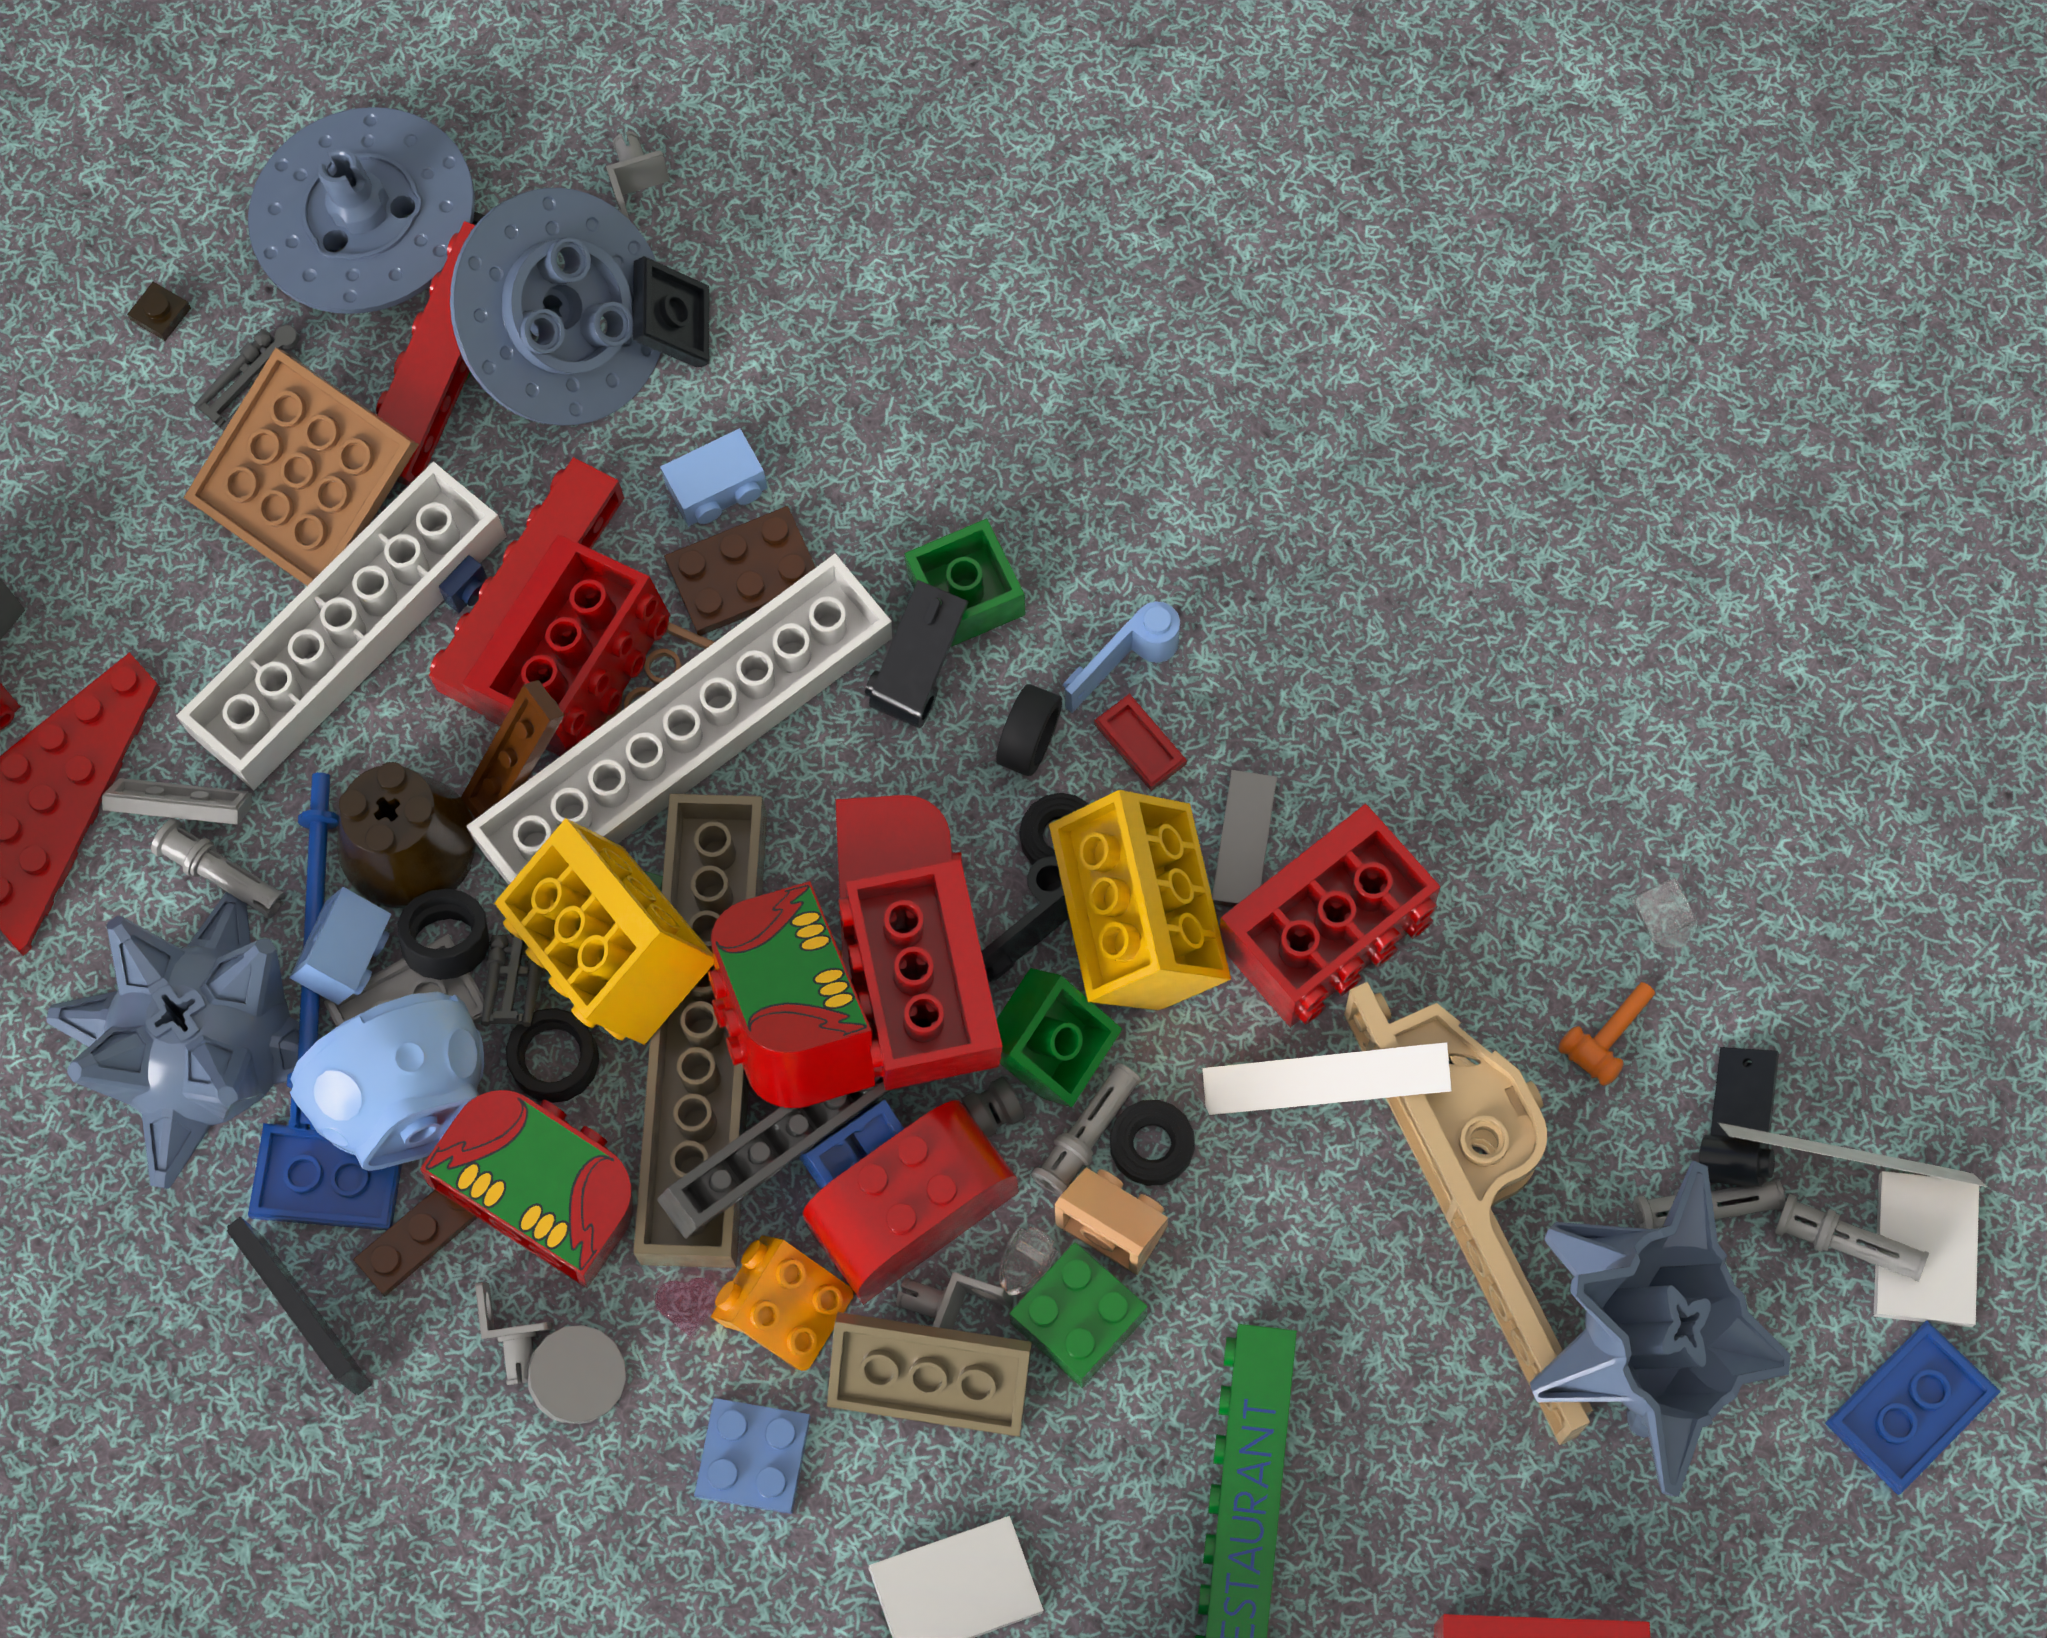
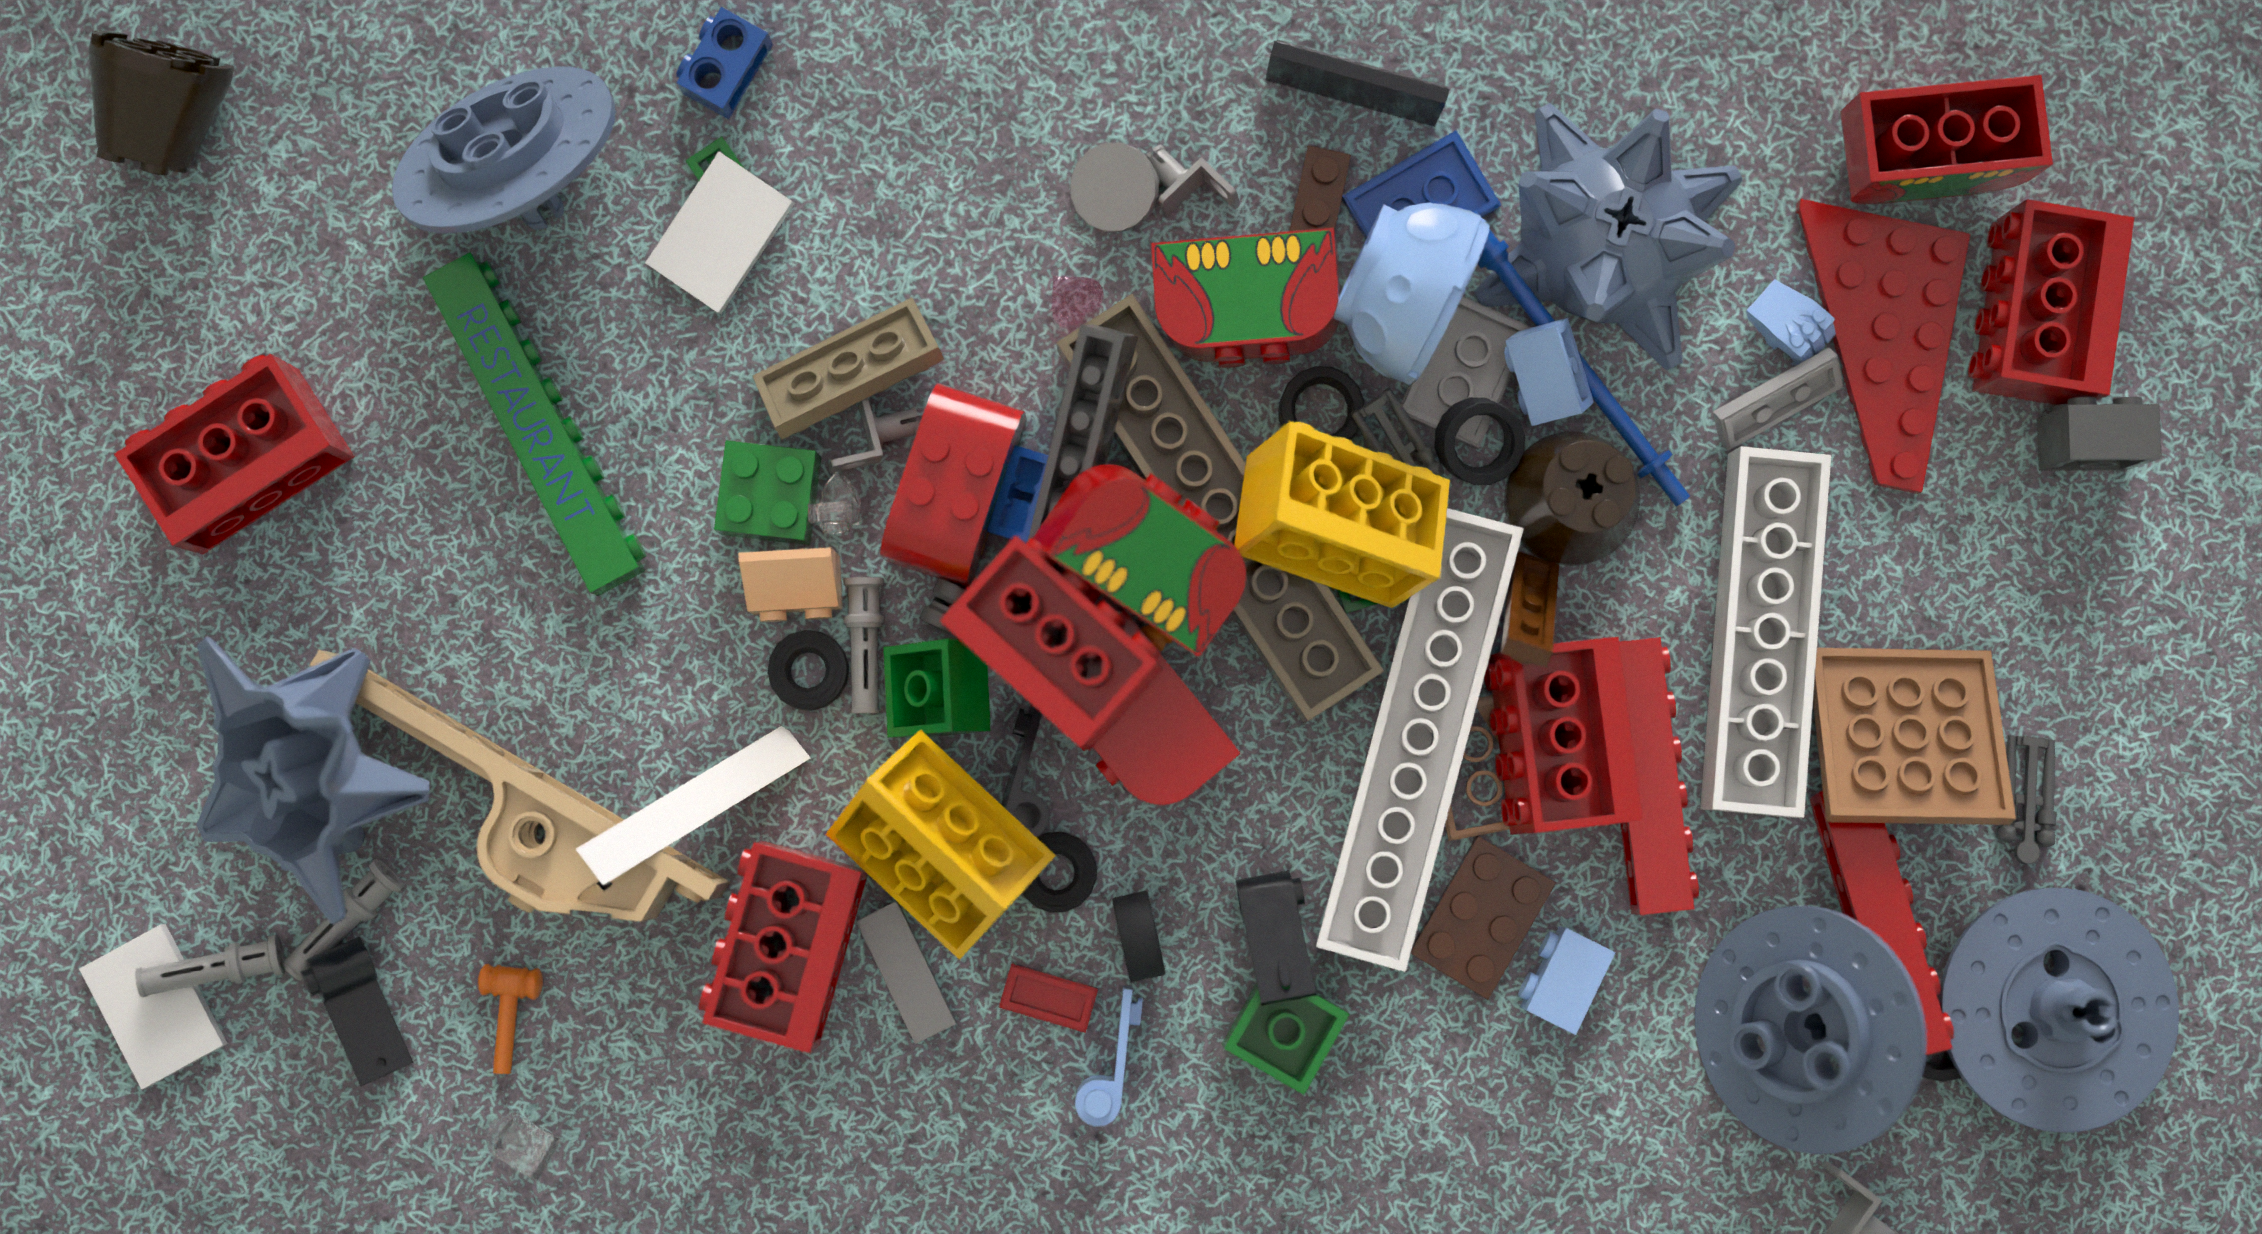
camera: 135 degrees right, 15 degrees up
(114, 854) = (1791, 322): none -> light blue hand
(159, 311) = (2155, 801): dark brown plate -> none
(203, 860) = (1720, 369): light grey pin -> none
(463, 584) = (1697, 739): dark blue plate -> none
(670, 312) = (1718, 1102): black tile -> none
(752, 1456) = (941, 224): medium blue plate -> none
(782, 1301) = (1003, 347): light orange bracket -> none
(1851, 1154) = (249, 1037): white sticker -> none
(1912, 1407) = (92, 870): blue tile -> none

